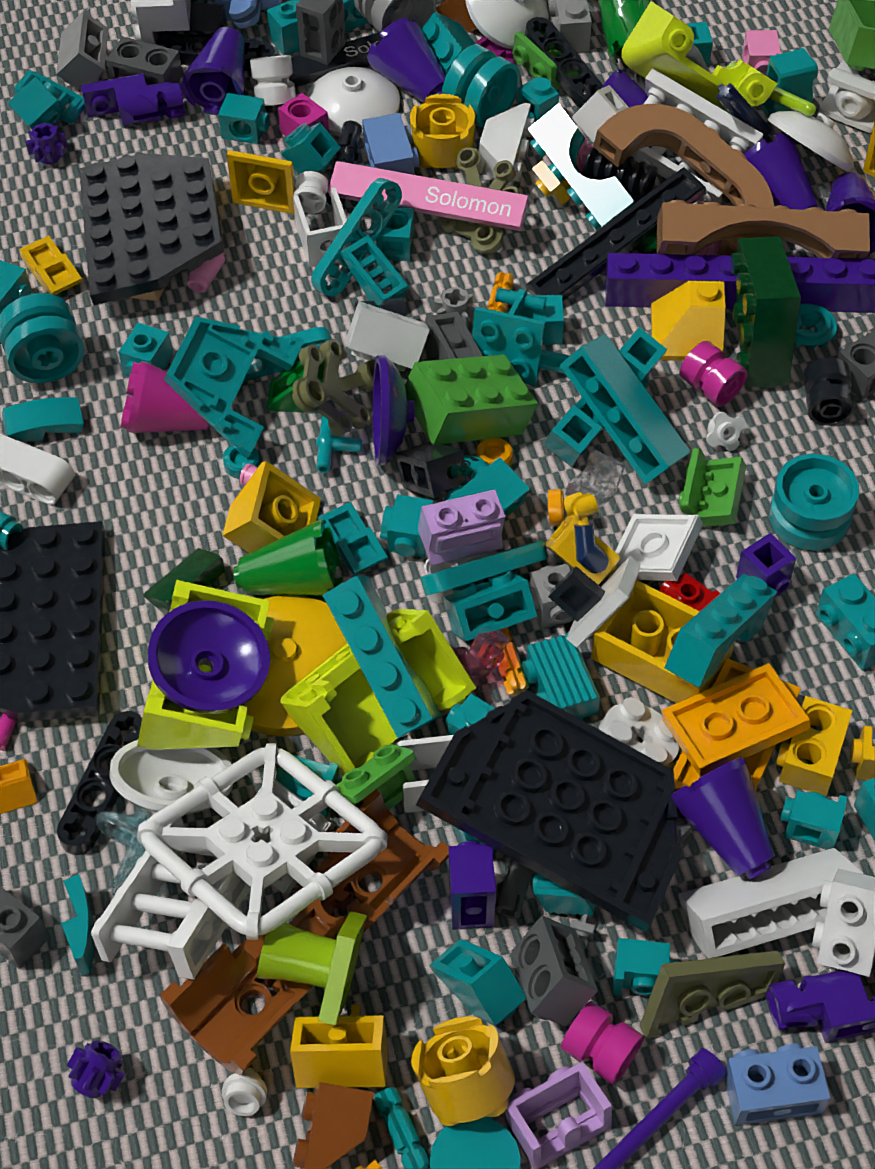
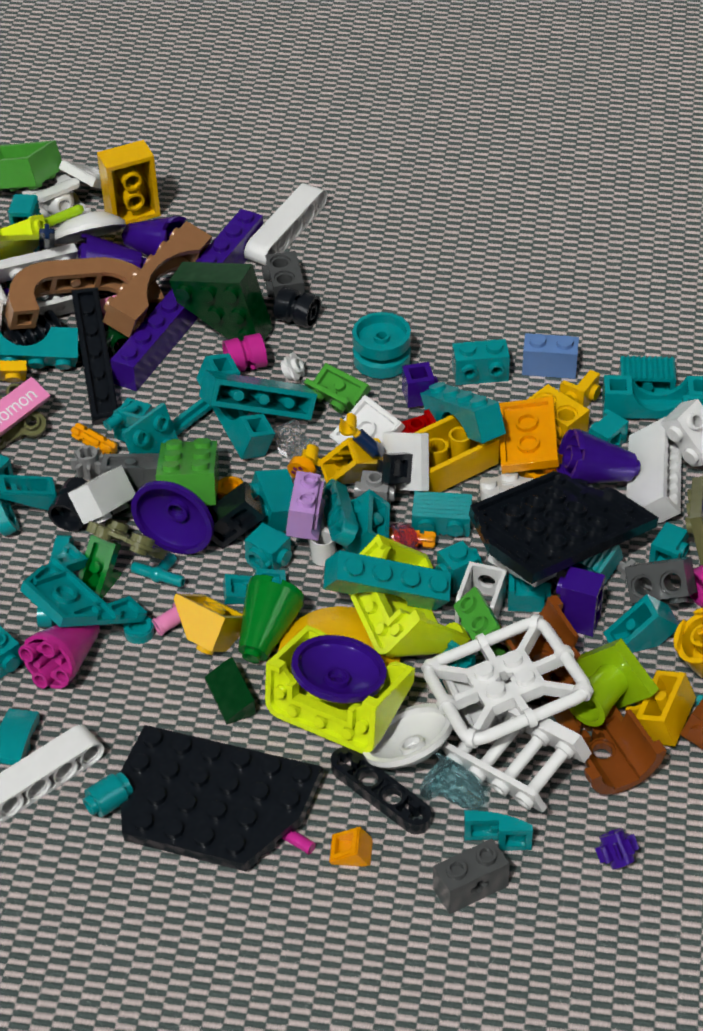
camera: 65 degrees left, 10 degrees down
(244, 1093) = (667, 775): white plate -> none
(689, 317) = (185, 347): yellow slope -> none

